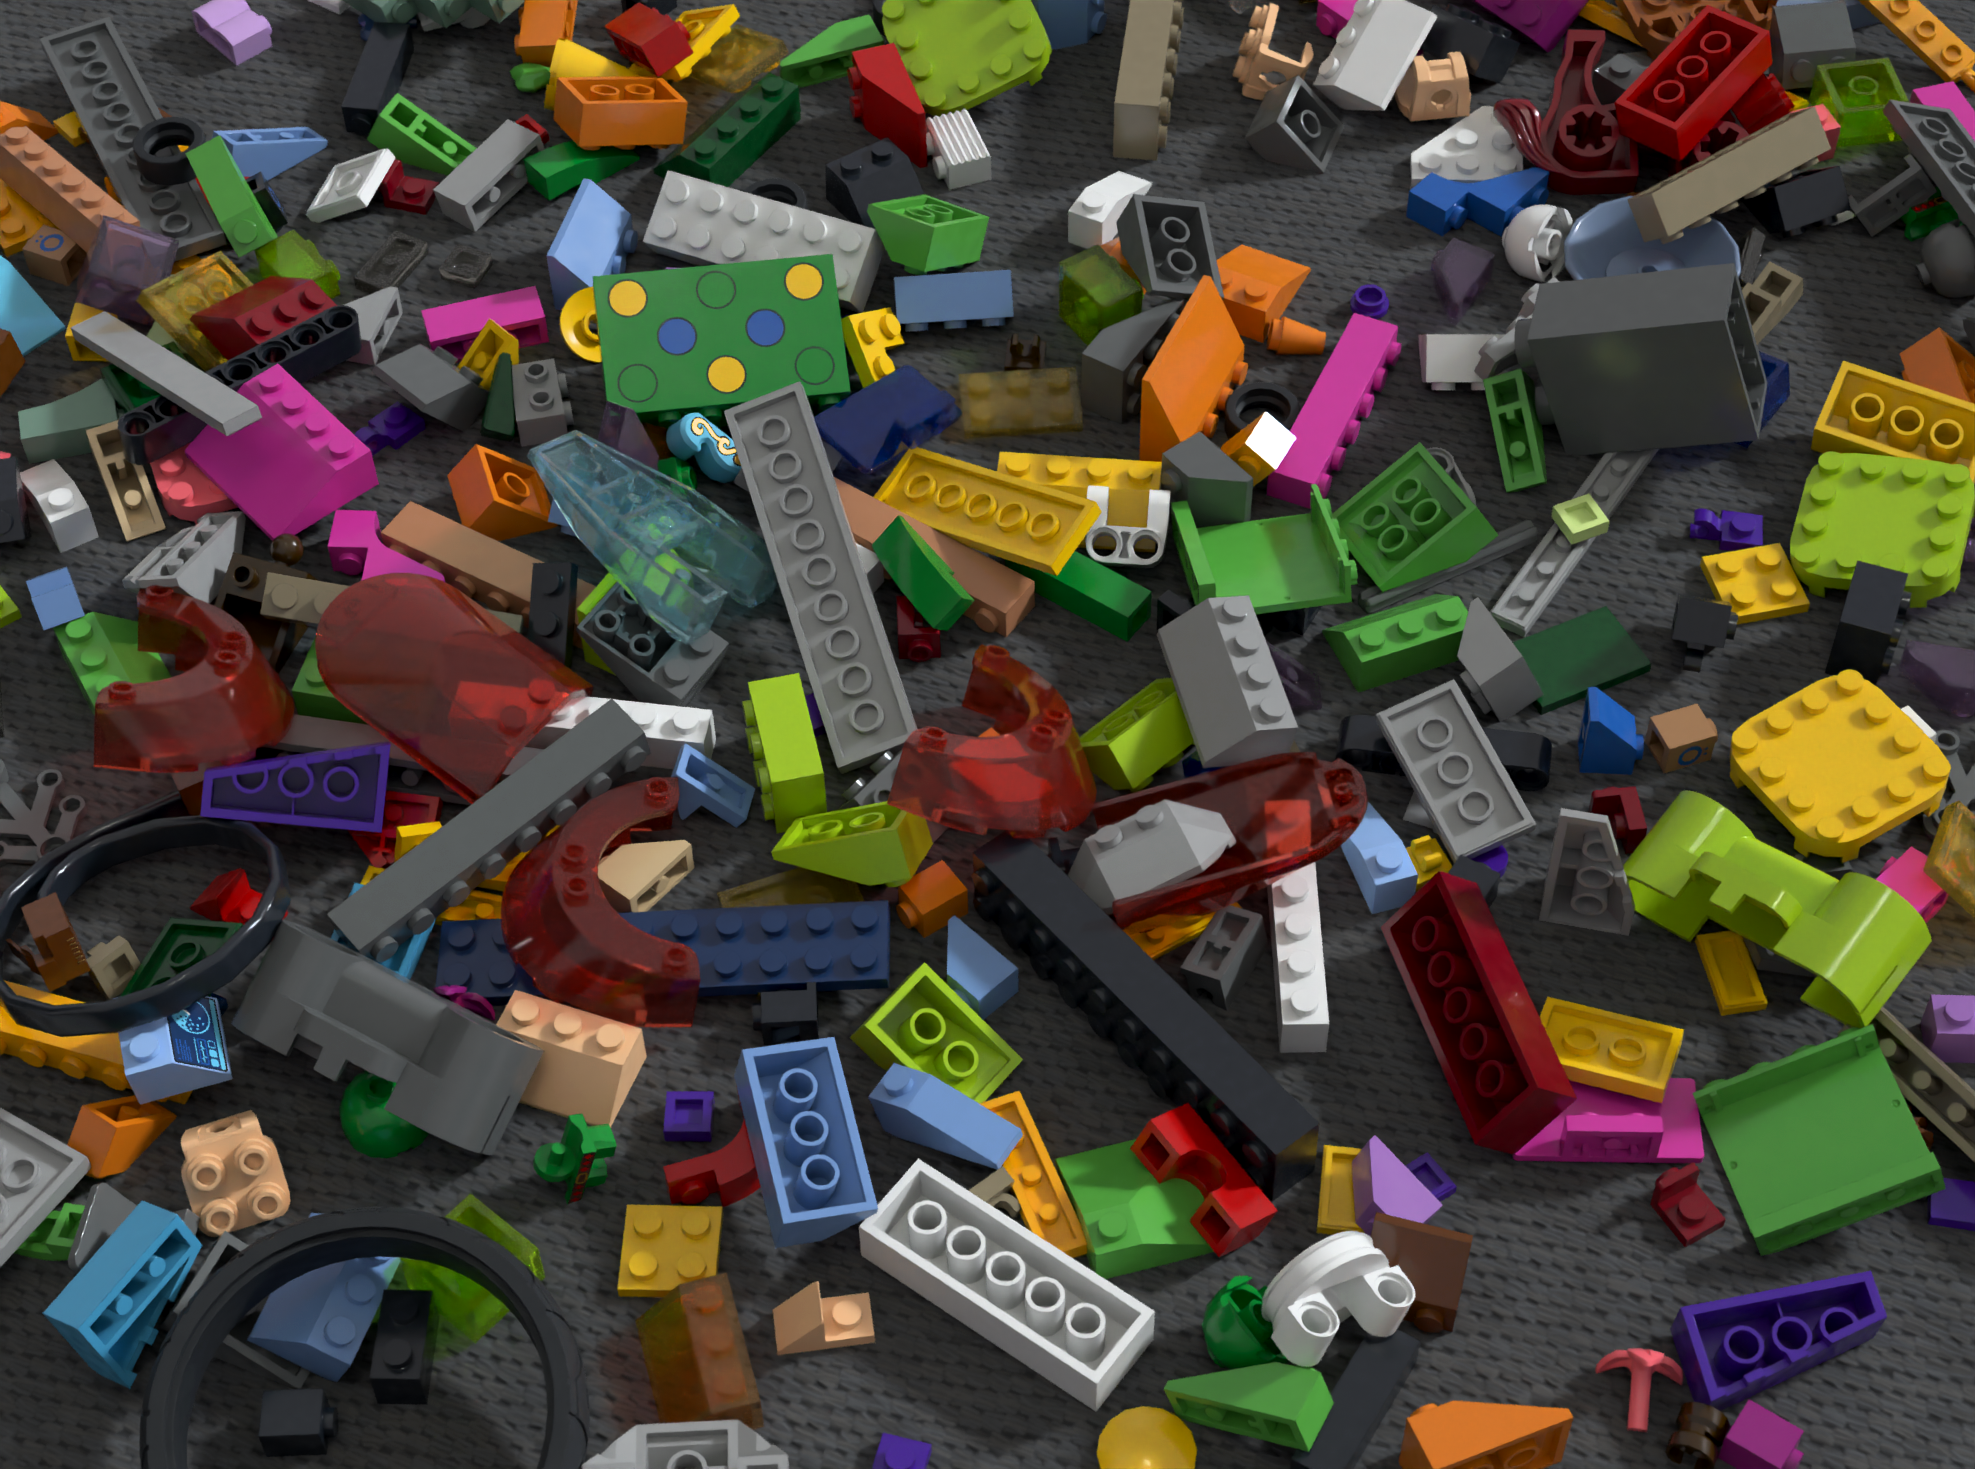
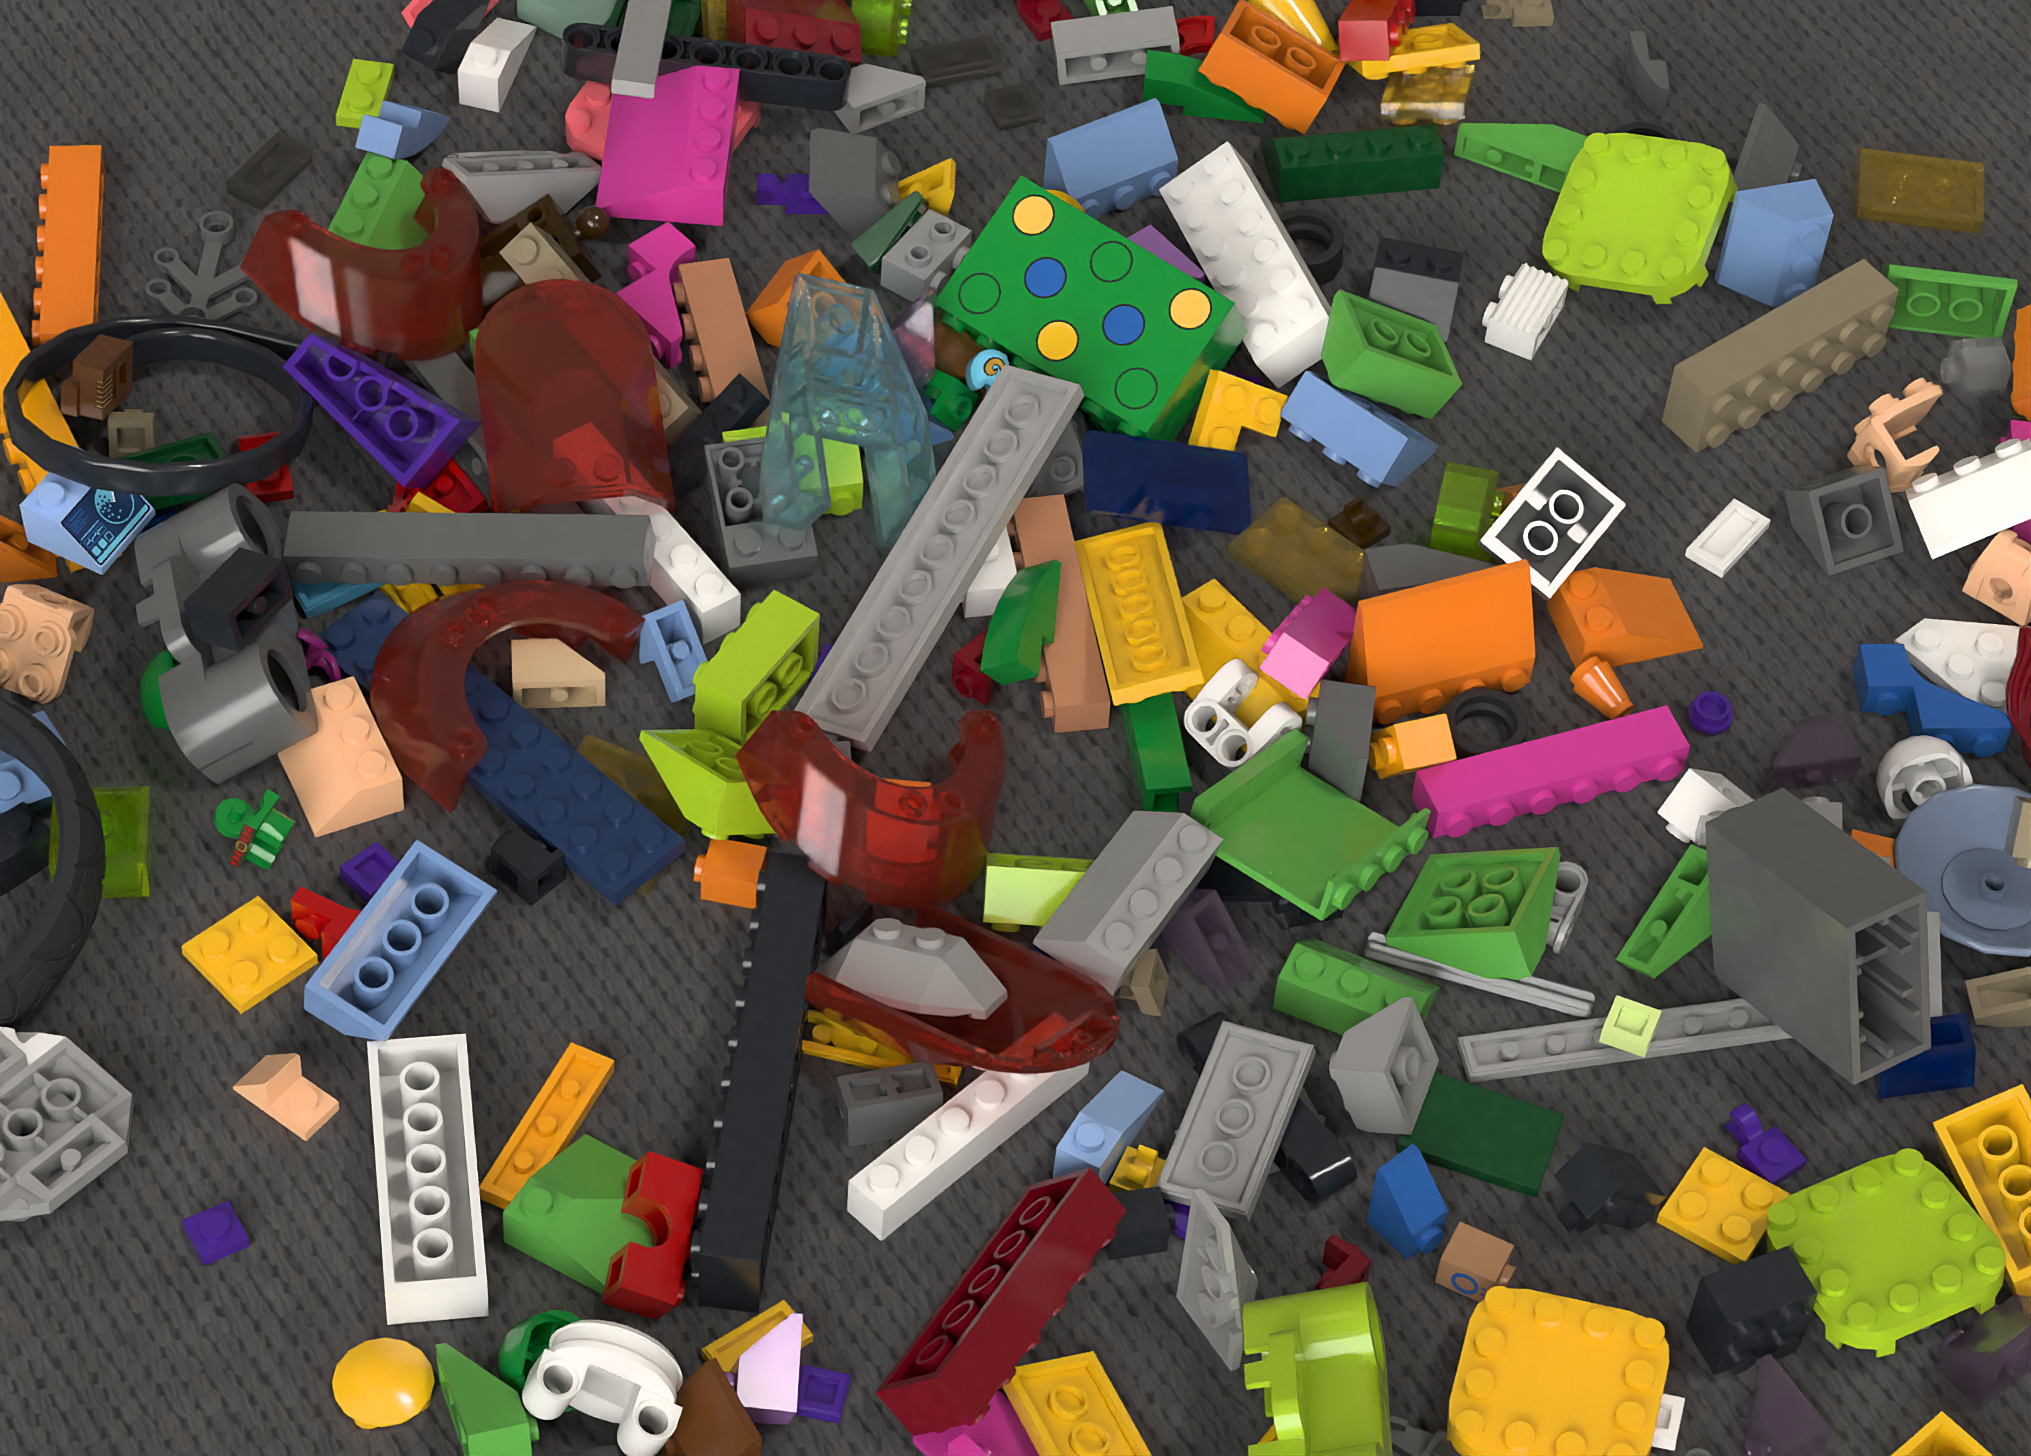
camera: 40 degrees right, 0 degrees up
(125, 484) = (549, 92): tan slope -> none
(403, 994) = (238, 599): none -> black brick
(459, 324) = (982, 169): dark pink brick -> none
(699, 1356) = (177, 1042): clear orange slope -> none
(888, 100) = (1512, 219): red slope -> none
(938, 1034) = (600, 976): lime slope -> none
(941, 1118) = (530, 1026): medium blue slope -> none
(978, 970) = (691, 951): medium blue slope -> none
(996, 1191) = (497, 1110): dark tan tile -> none
(1099, 206) = (1598, 450): white slope -> none
(1120, 438) = (1309, 642): none -> dark pink brick
(1242, 194) = (1727, 538): none -> white tile

